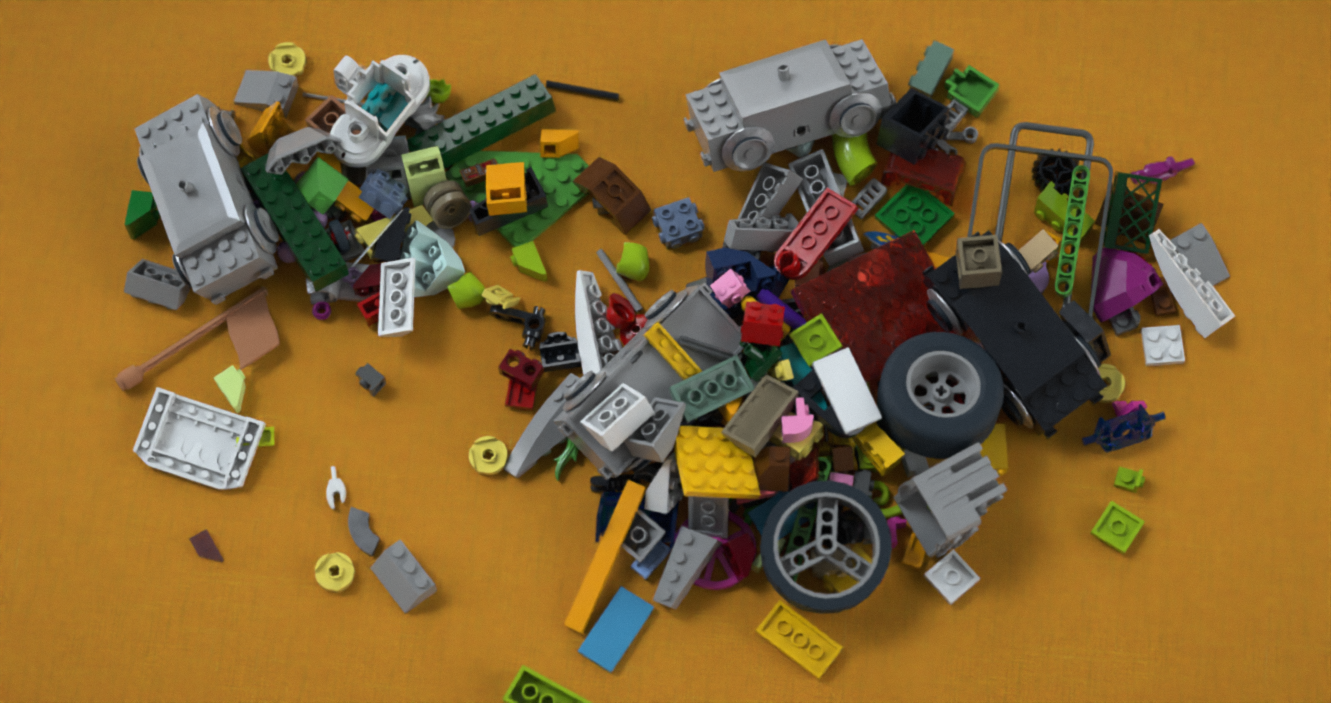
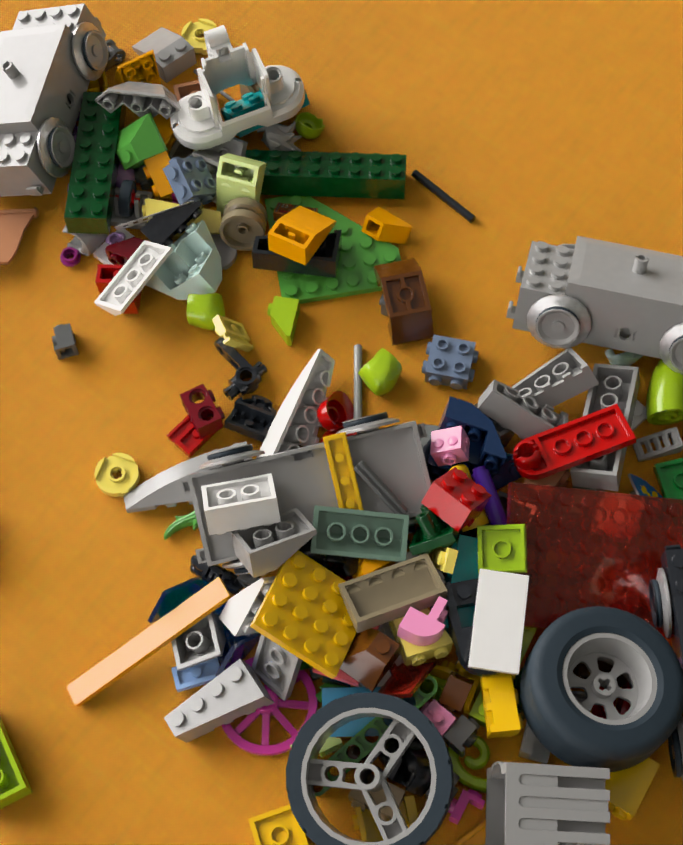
camera: 35 degrees right, 5 degrees down
(616, 629) = (112, 724): dark azure tile -> none
(740, 554) = (284, 726): dark red slope -> none

